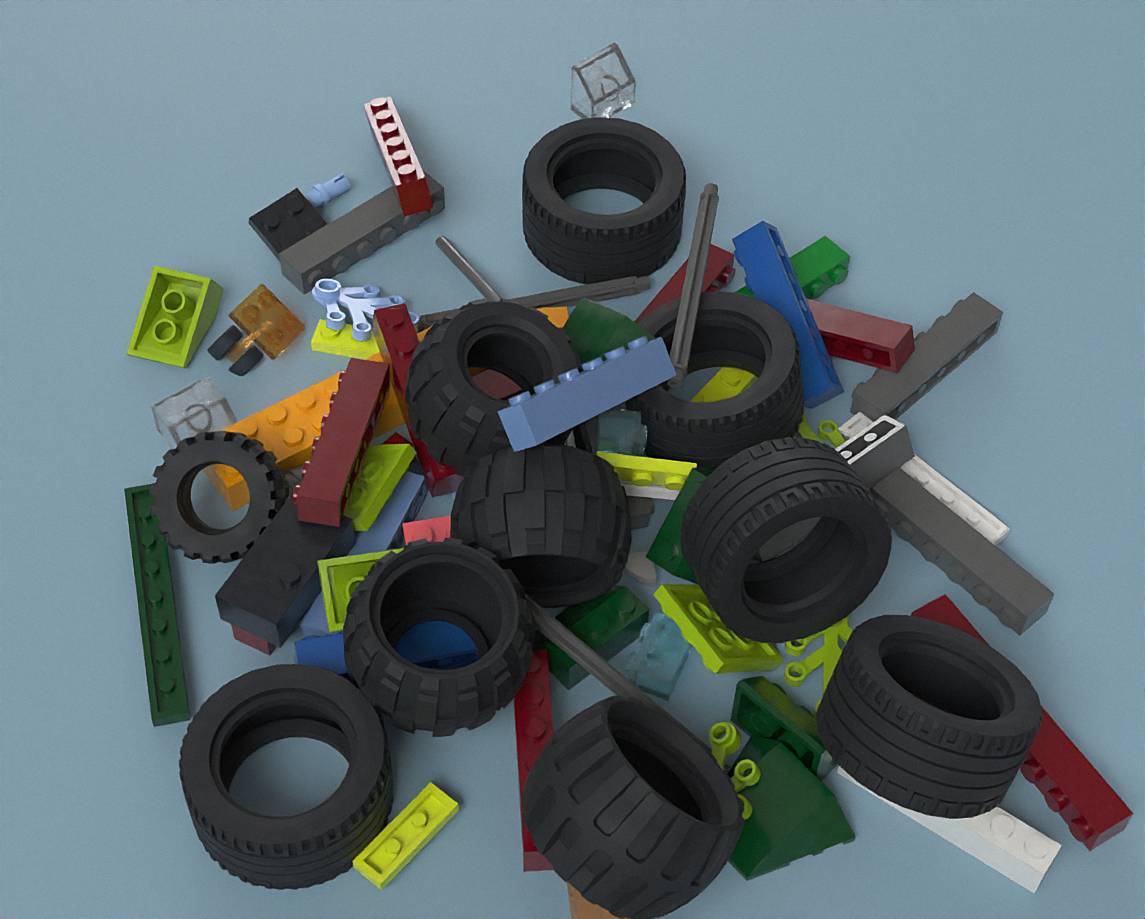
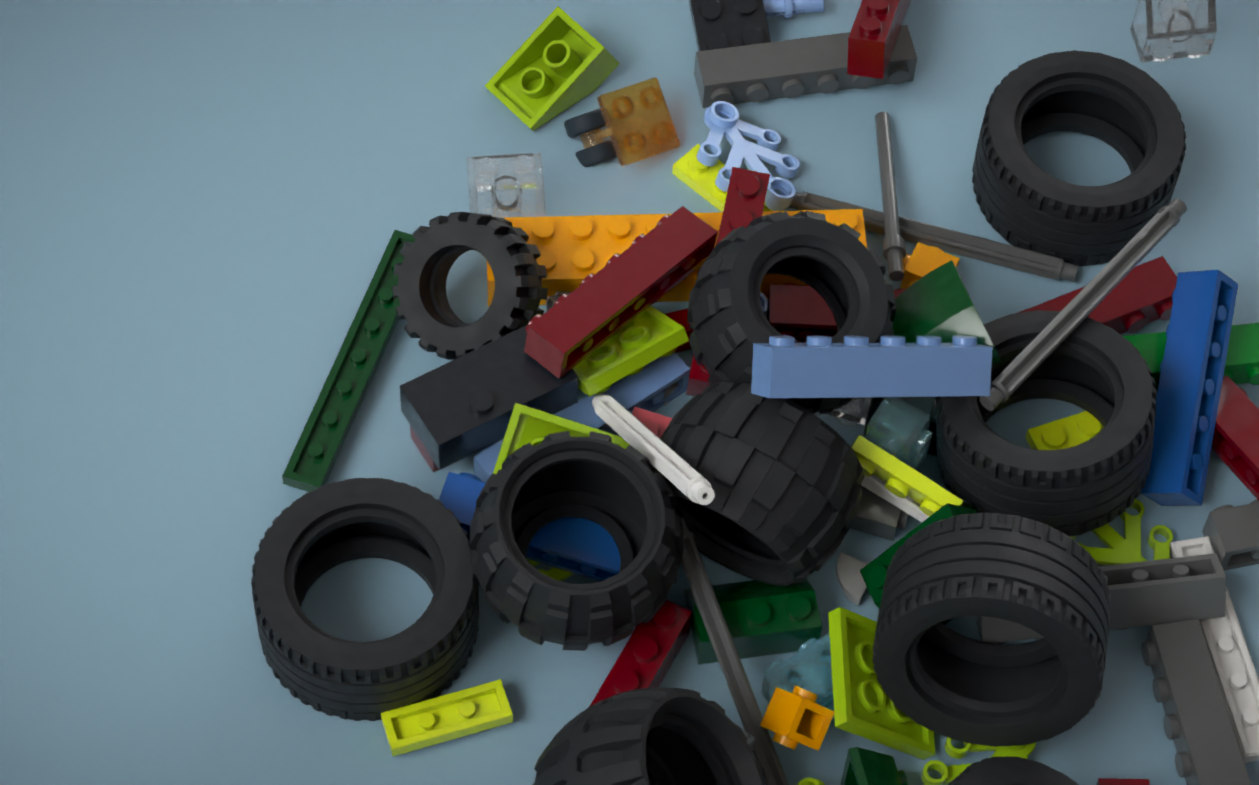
camera: 30 degrees right, 5 degrees up
(473, 534) = (659, 453): none -> white piece
(681, 684) = (797, 718): none -> light orange brick

